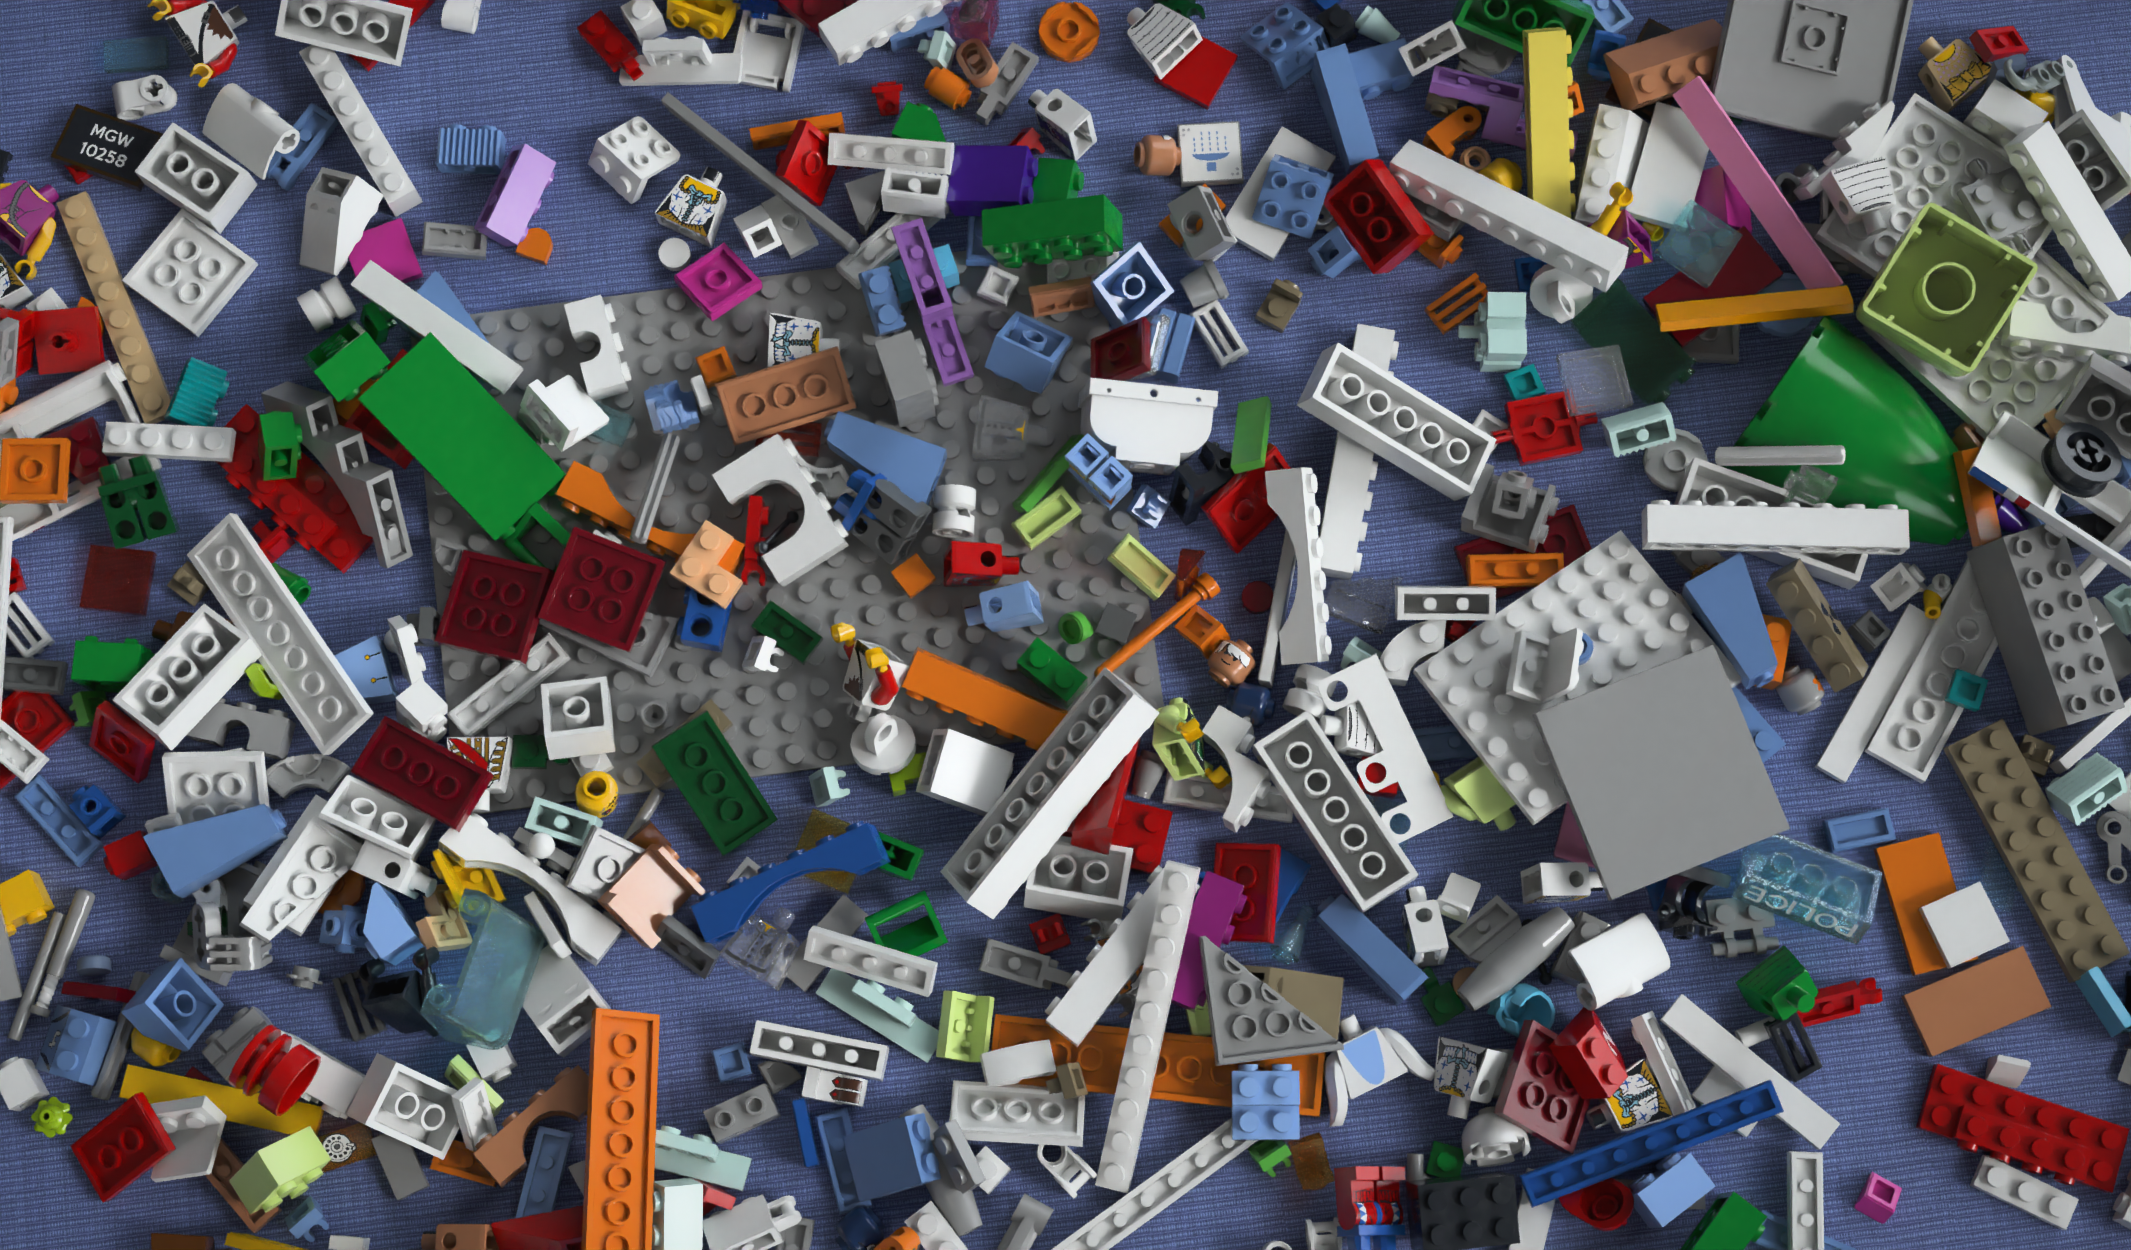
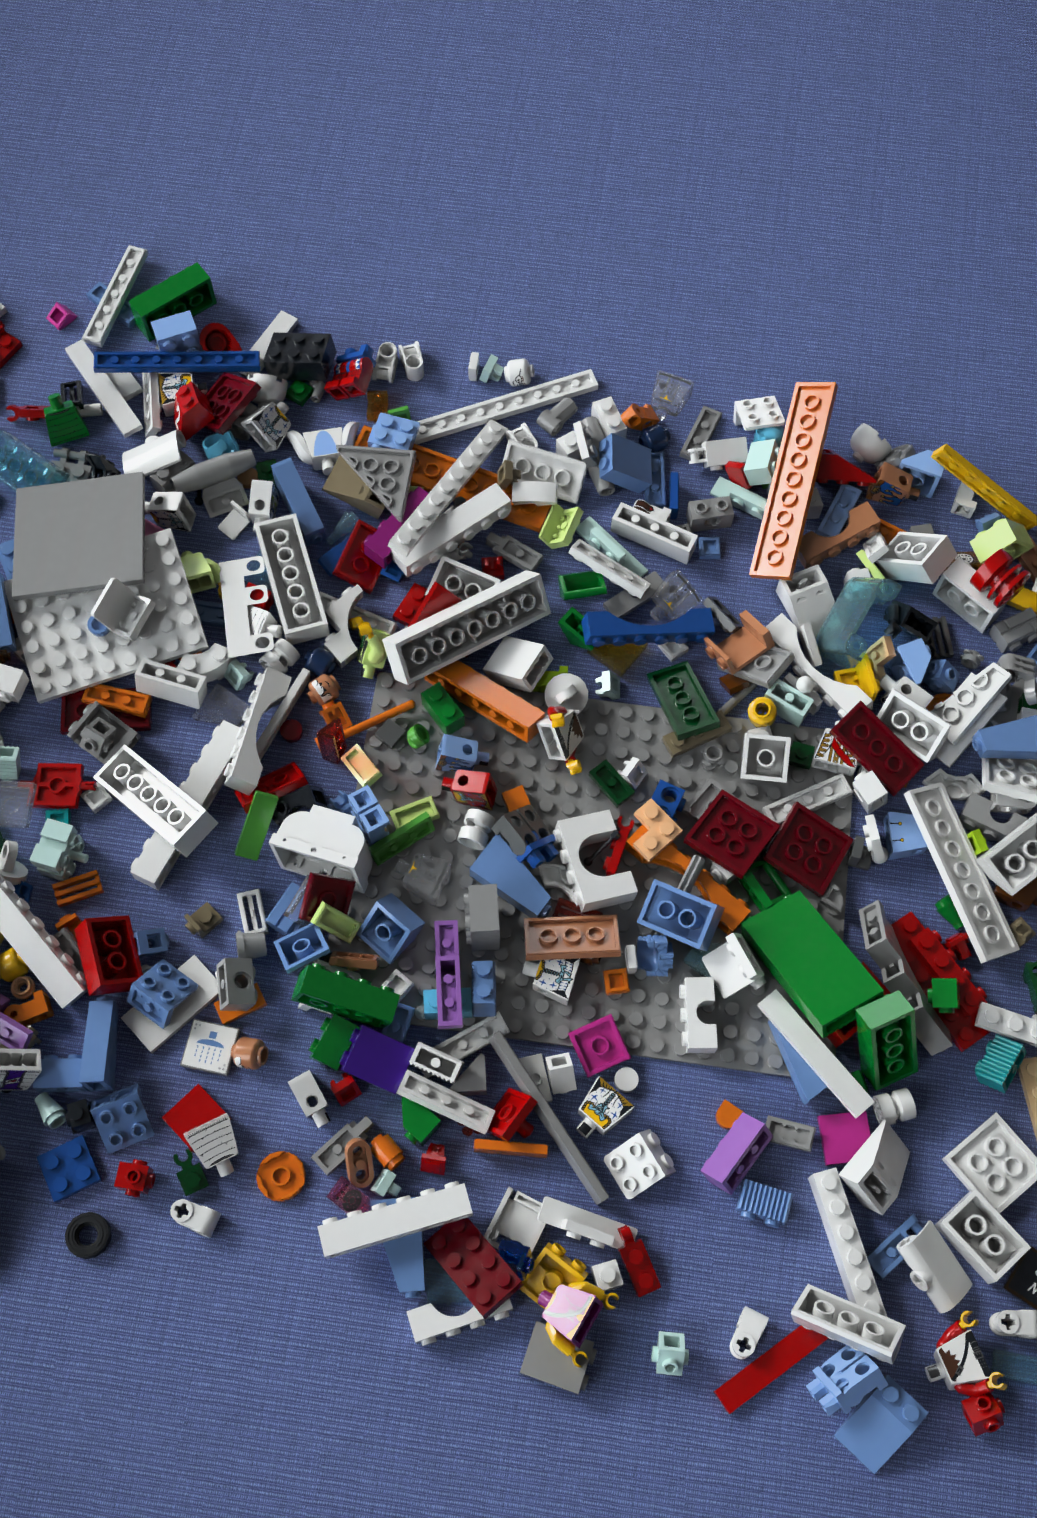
camera: 165 degrees left, 10 degrees down
(646, 455) = (680, 915): none -> medium blue slope
(1100, 333) = (336, 922): none -> yellowish green tile

